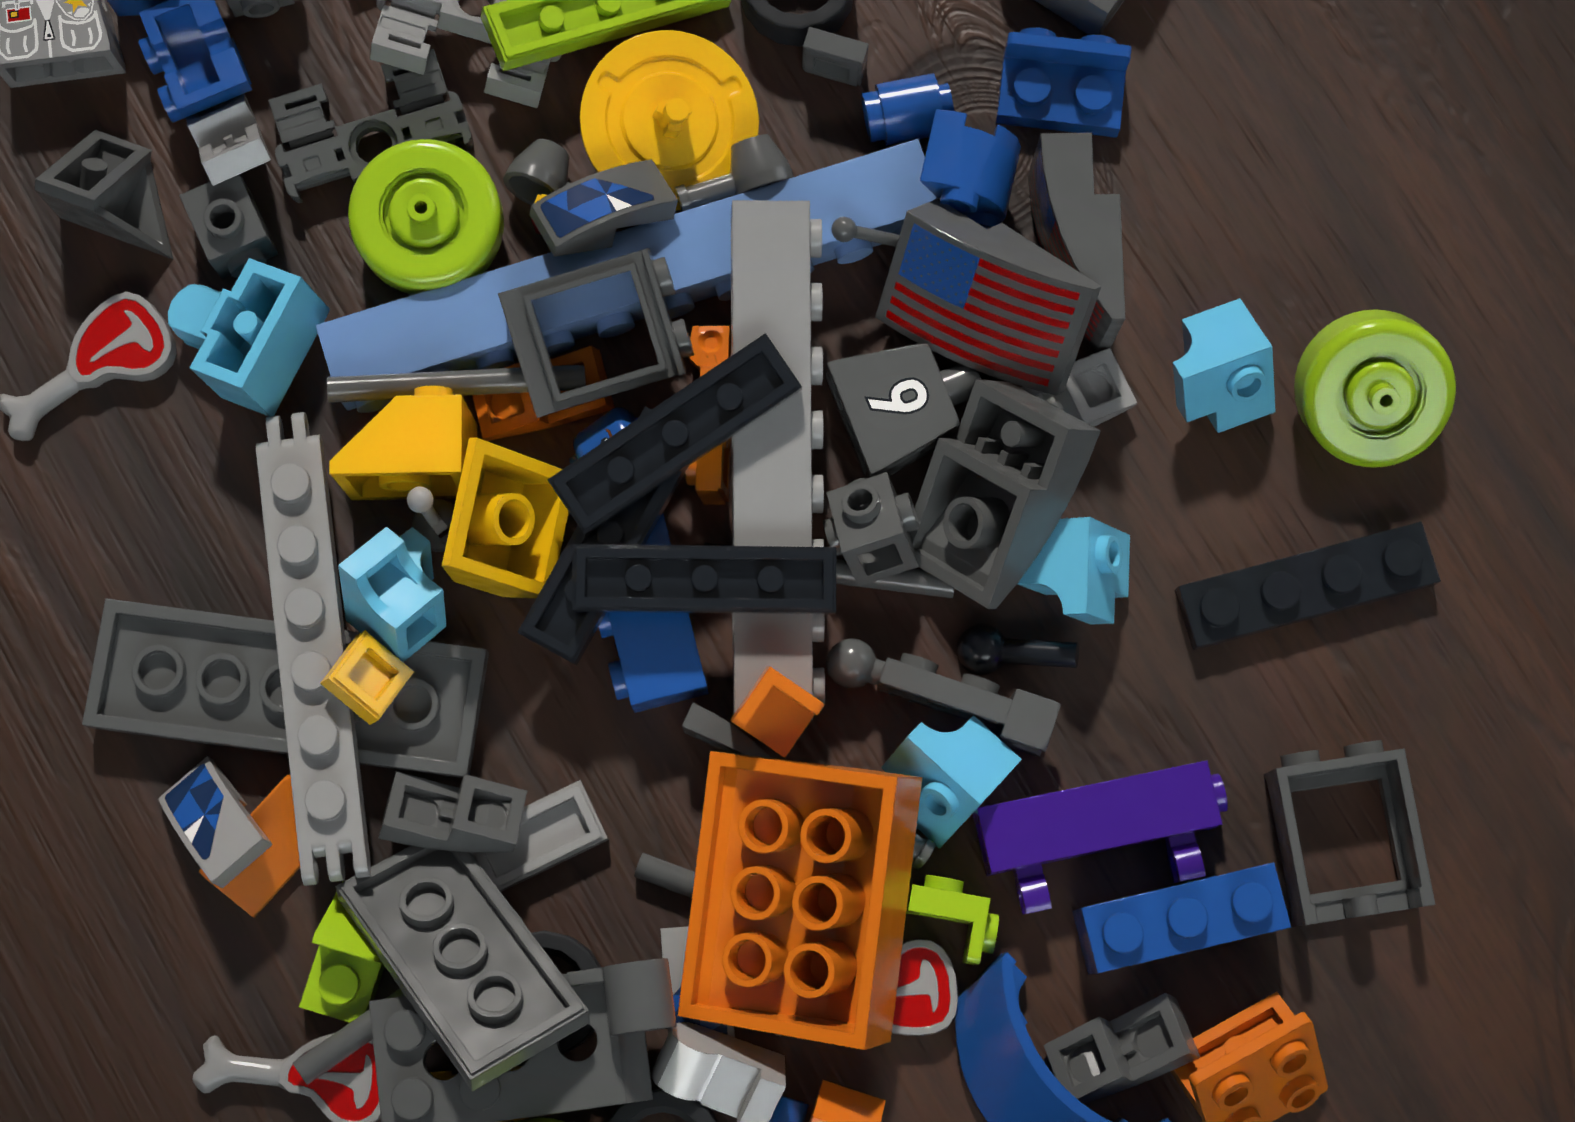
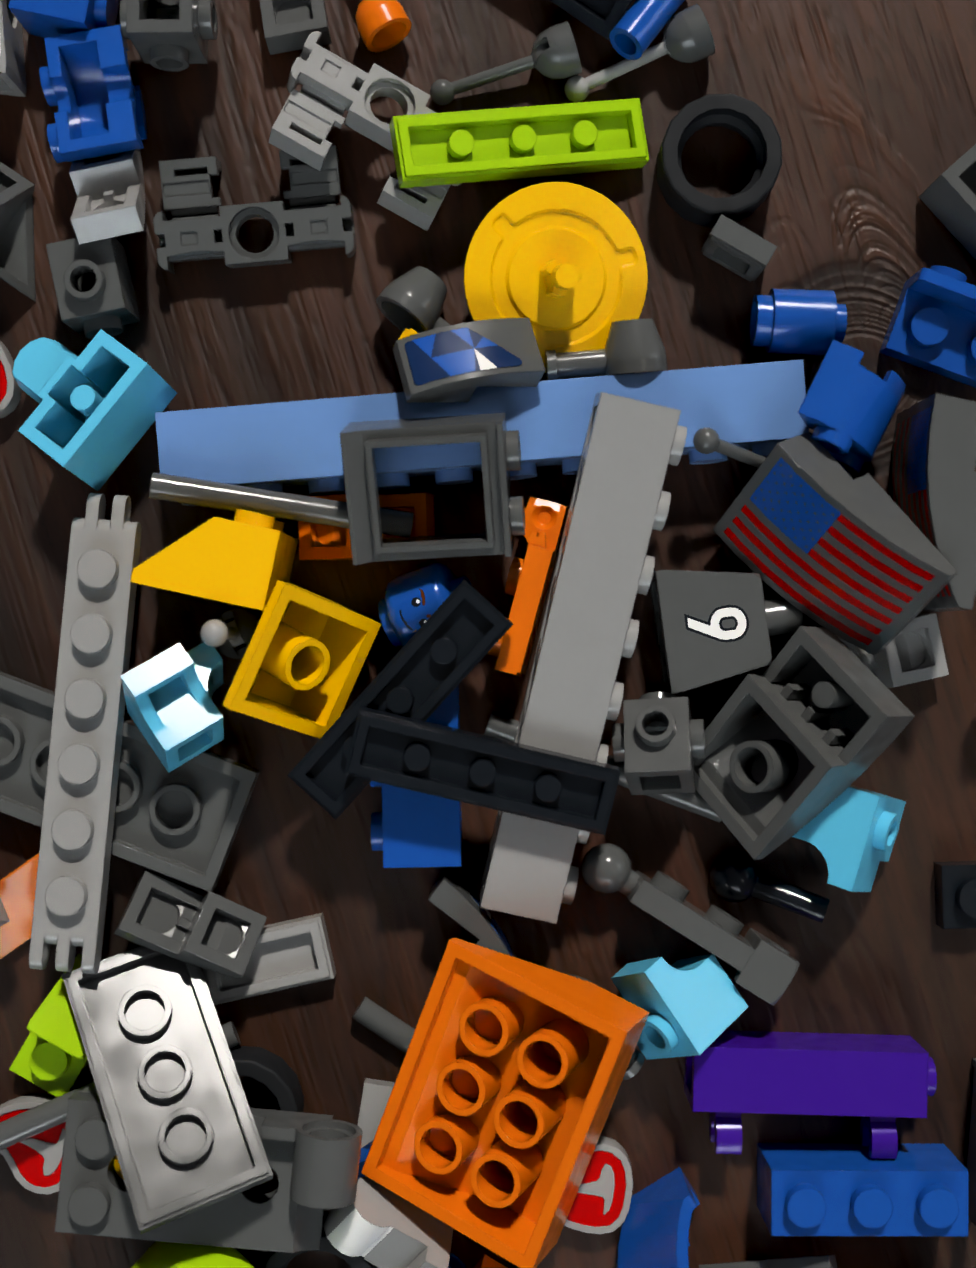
camera: 10 degrees right, 10 degrees up
(367, 677) = (132, 782): yellow tile -> none
(425, 216) = (288, 324): lime wheel -> none
(675, 434) = (487, 620): black tile -> none
(776, 711) = (522, 914): orange panel -> none
(945, 900) = (642, 1119): lime bracket -> none

